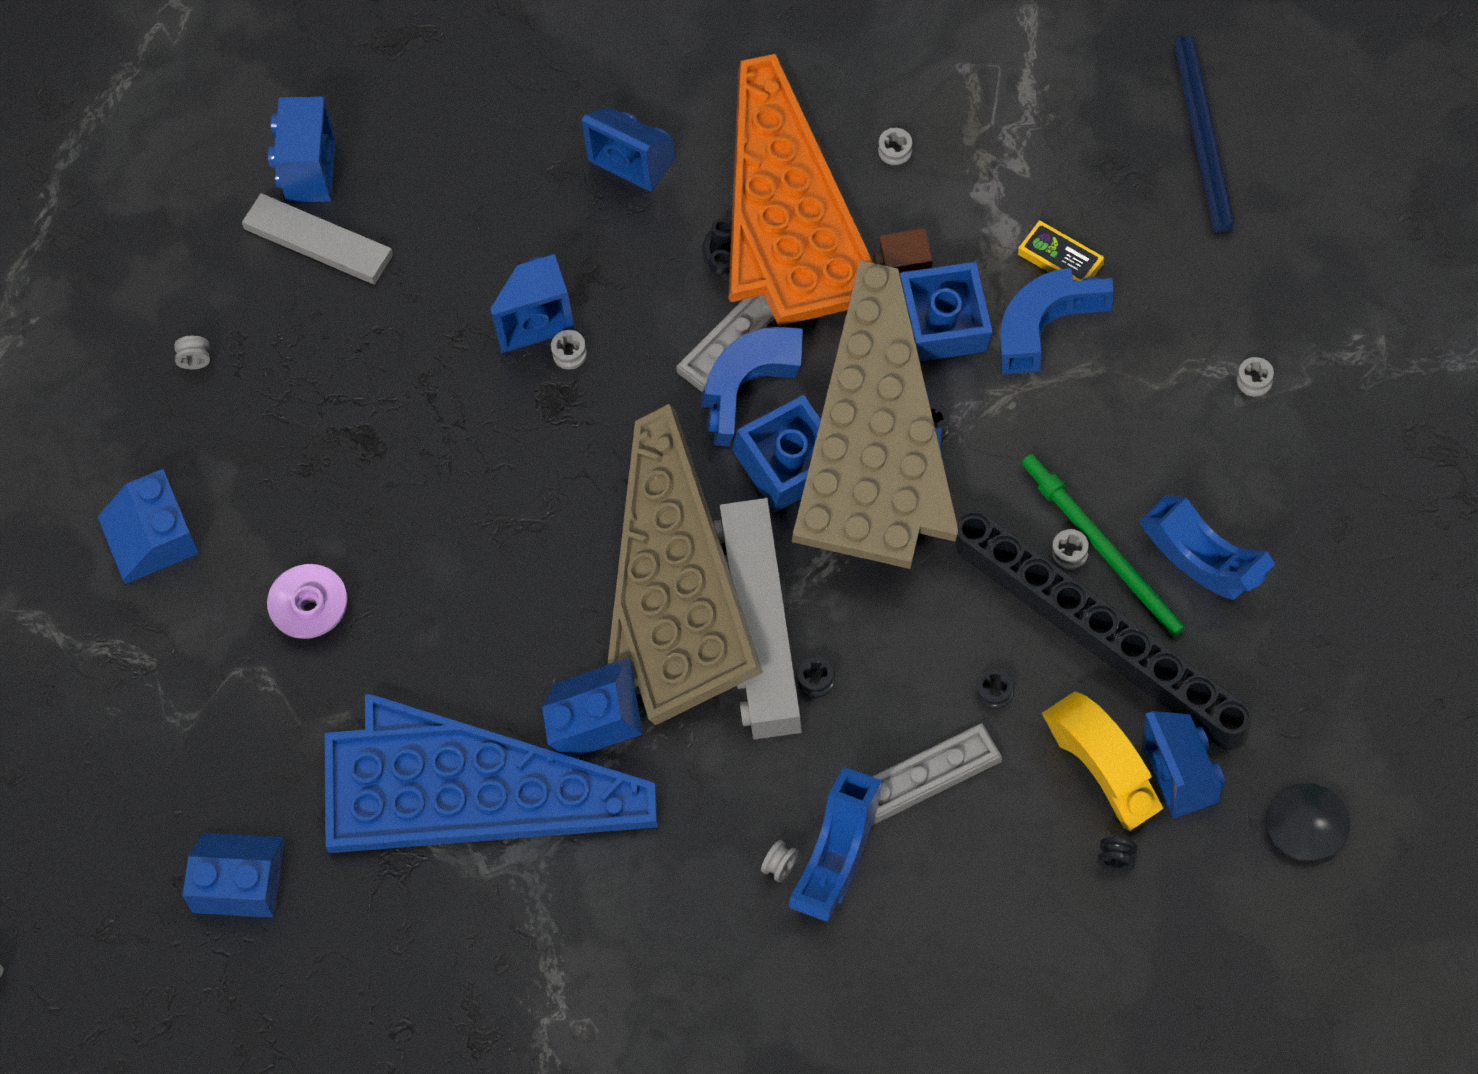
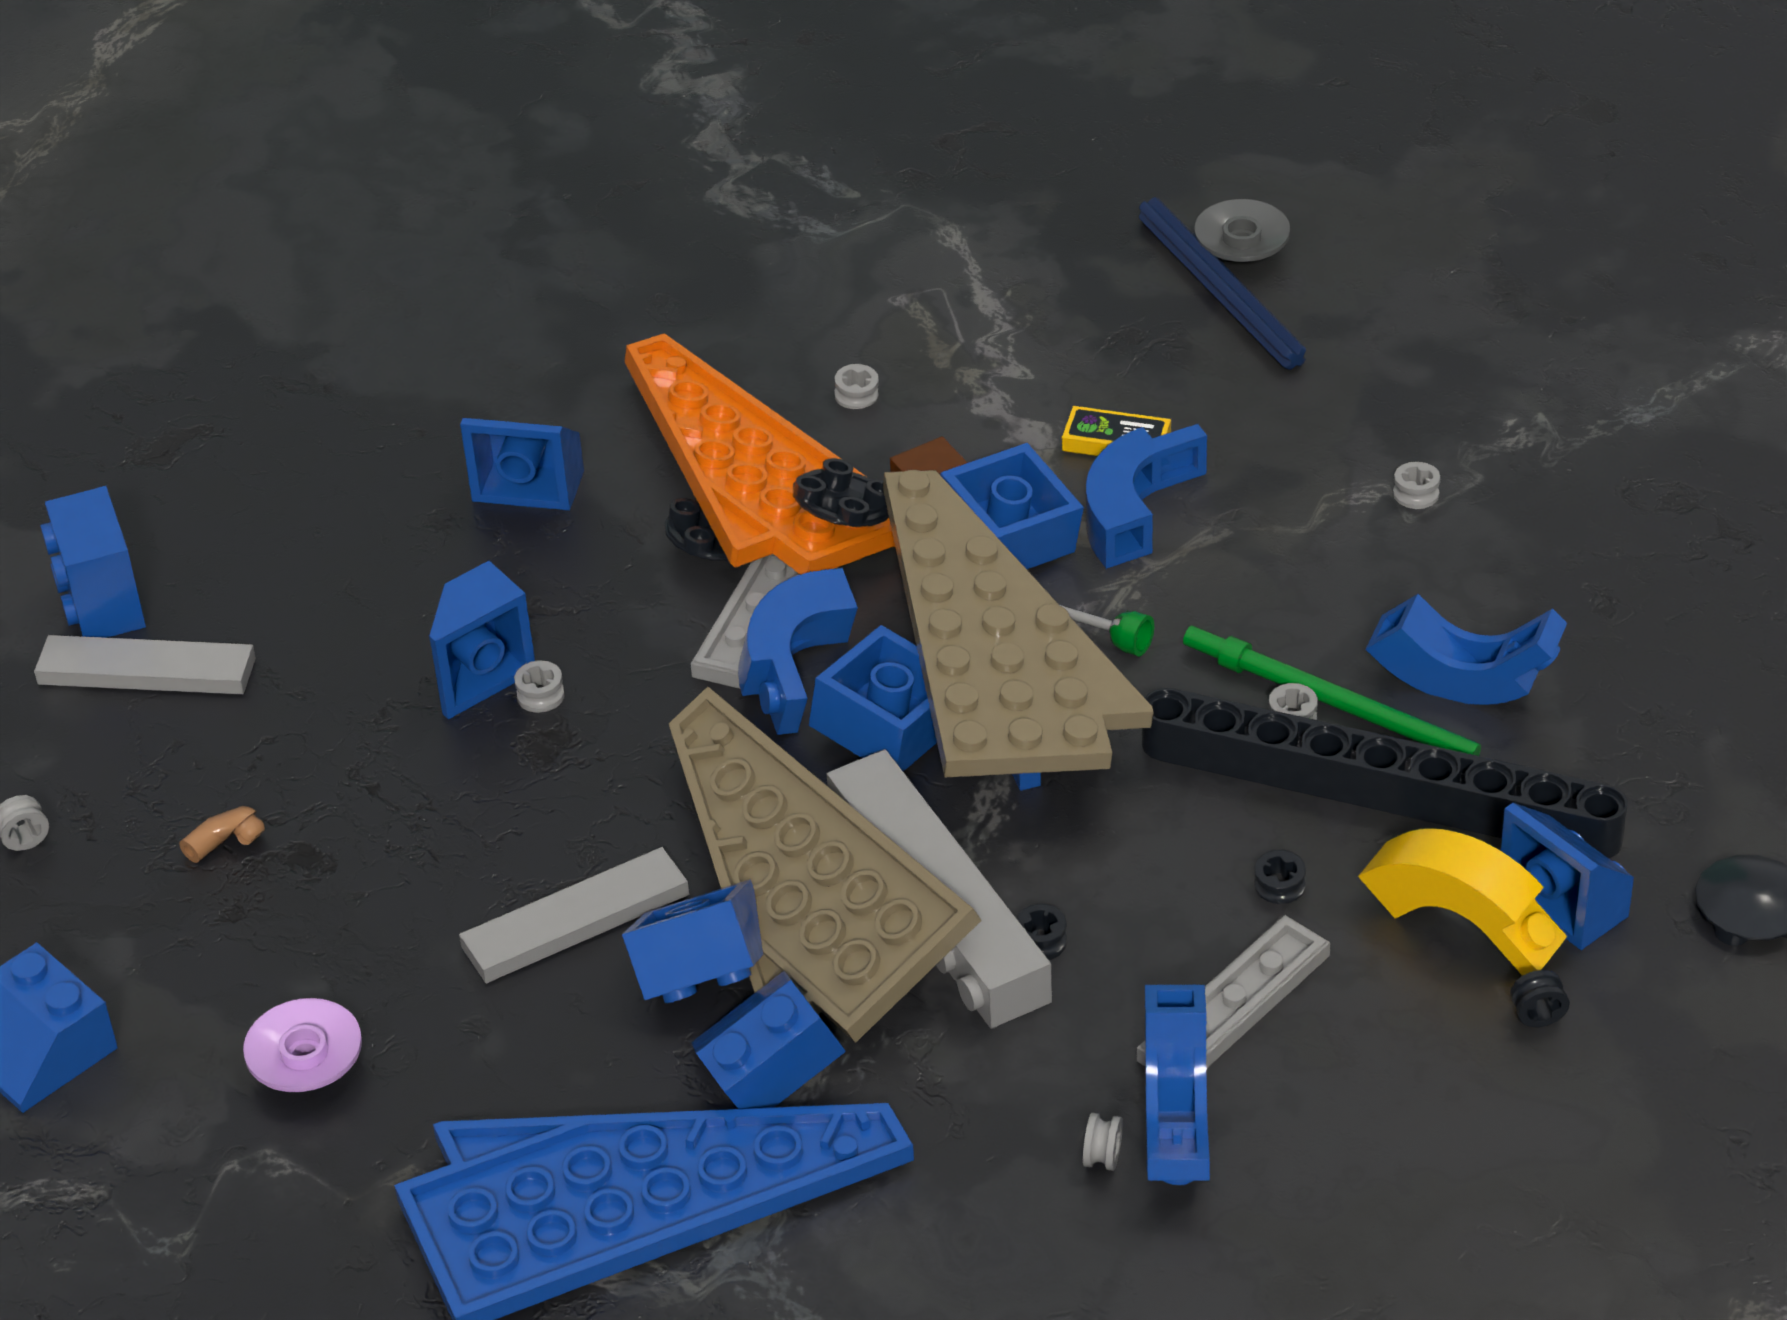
camera: 25 degrees left, 20 degrees down
(317, 399) = (220, 827): none -> medium nougat arm
(519, 552) = (573, 914): none -> light grey tile
(581, 610) = (696, 942): none -> blue slope
(827, 263) = (841, 495): none -> black dish
(986, 441) = (1129, 631): none -> green hinge
(1239, 78) = (1242, 230): none -> dark grey dish

